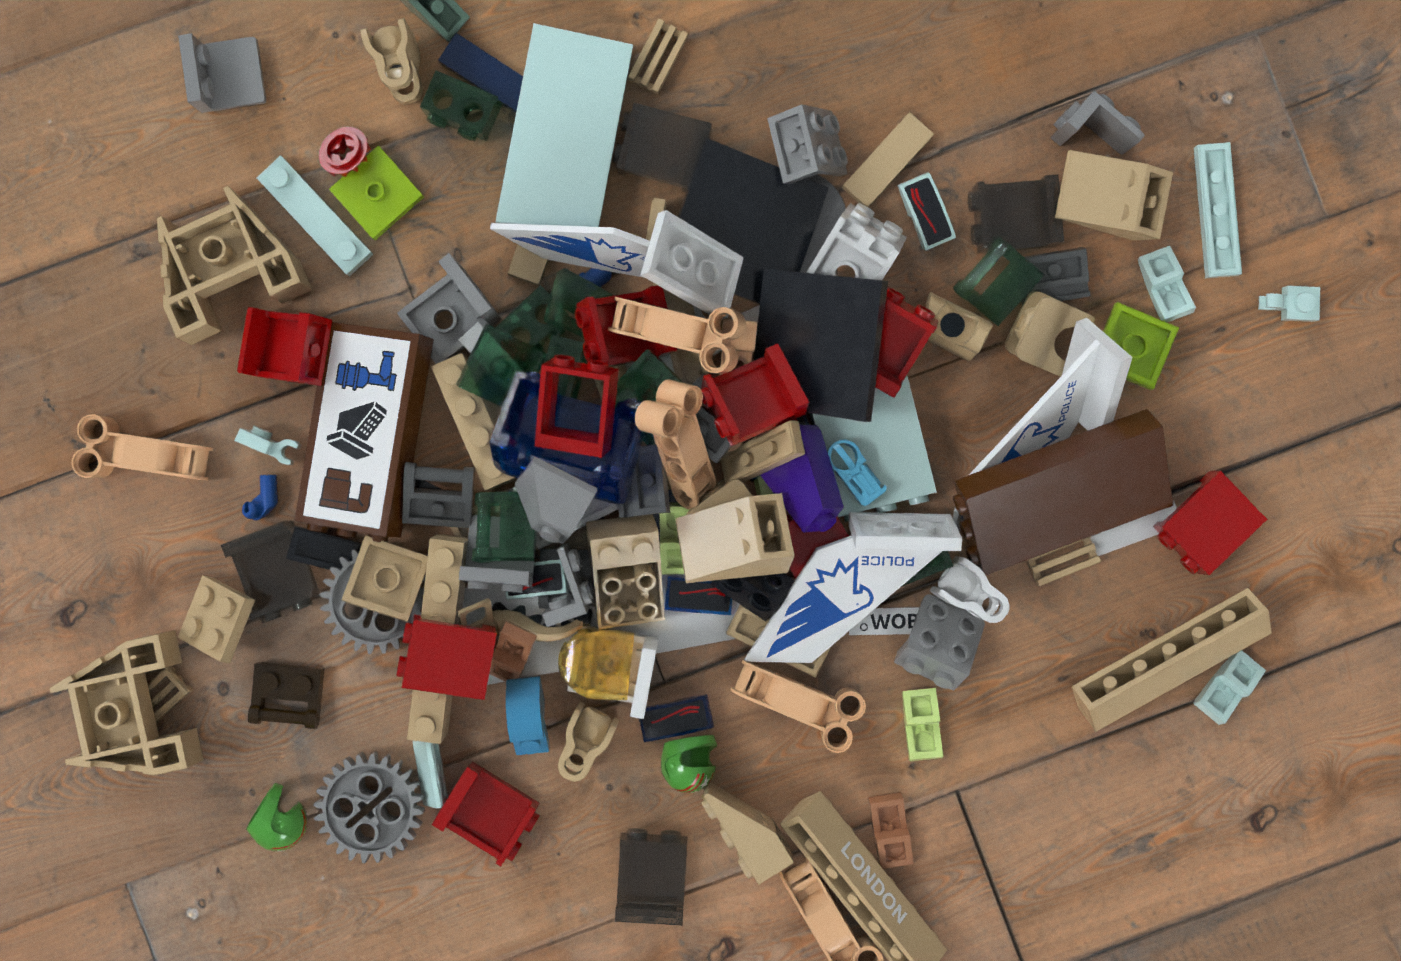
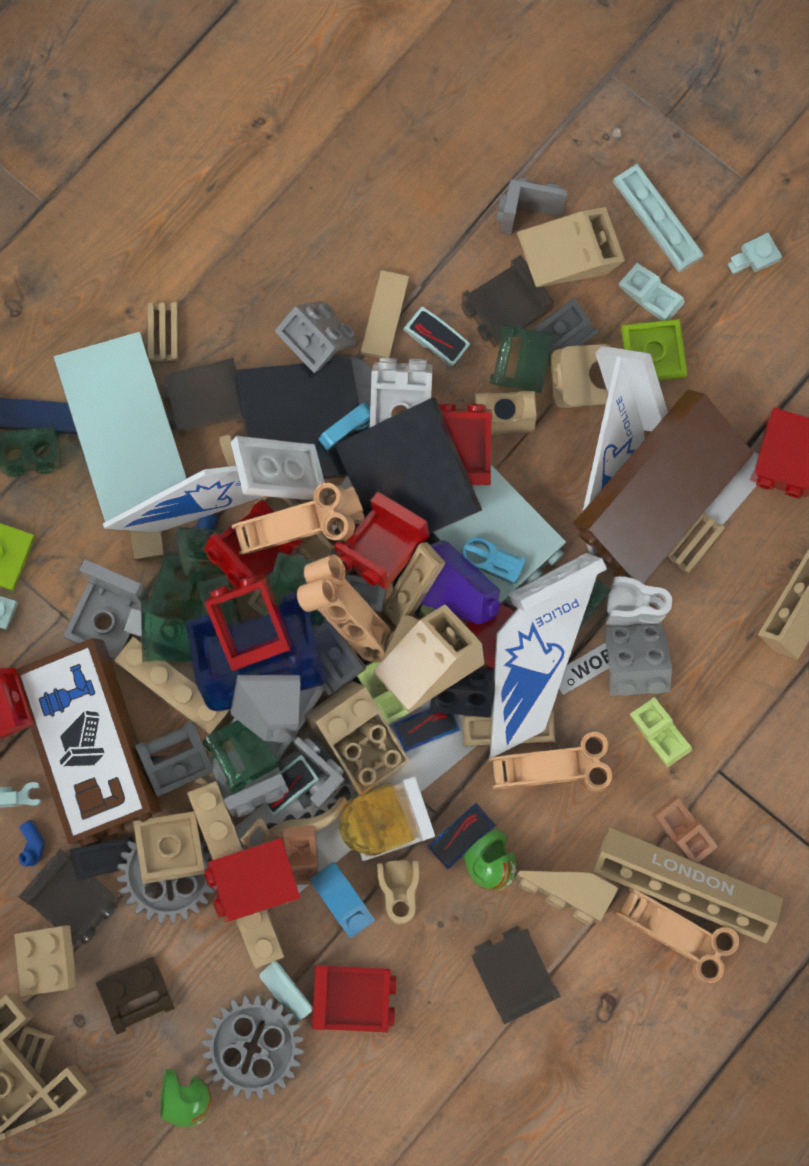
camera: 30 degrees left, 10 degrees down
(786, 255) = (345, 426): none -> medium azure piece

